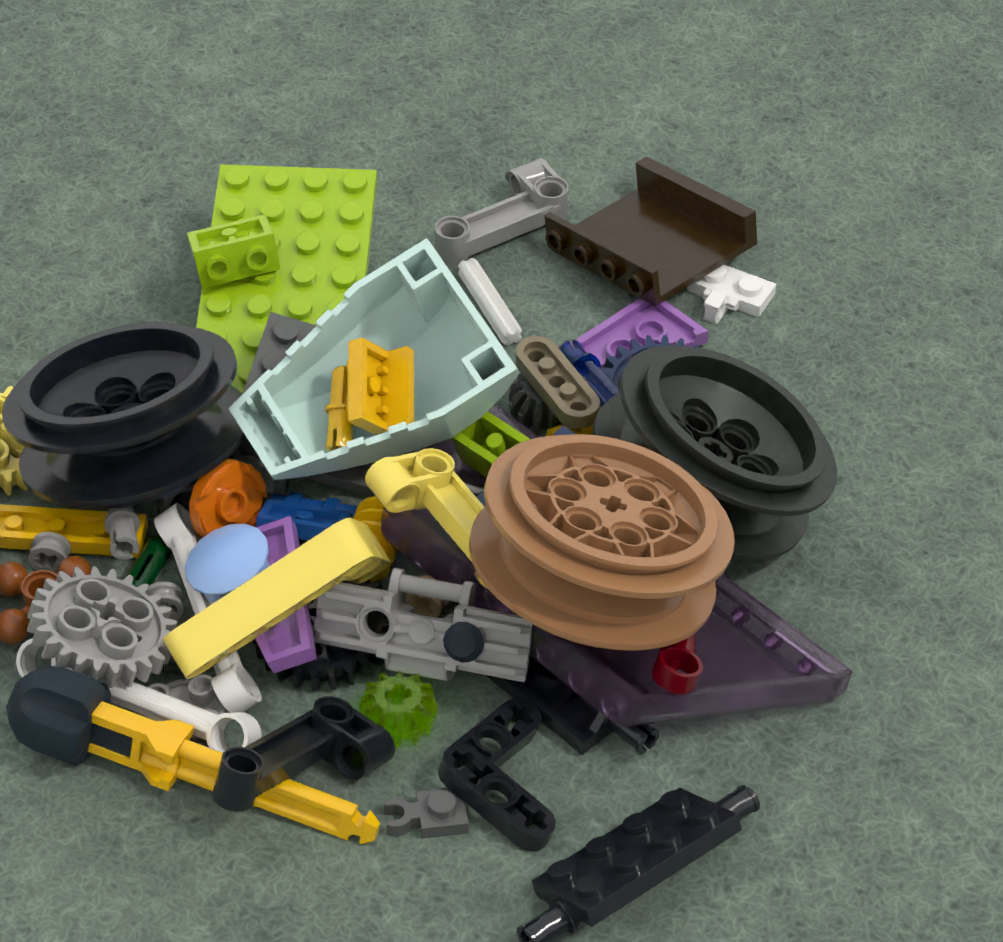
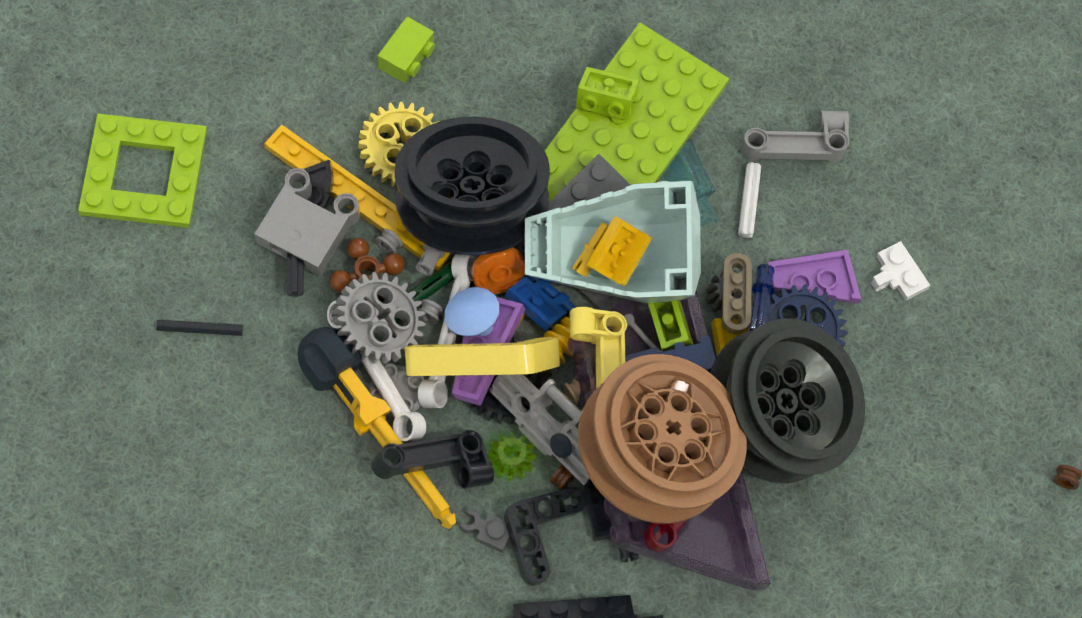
camera: 25 degrees right, 20 degrees up
(485, 696) = (562, 477): none -> reddish brown bush
(657, 235) = (877, 210): dark brown panel -> none

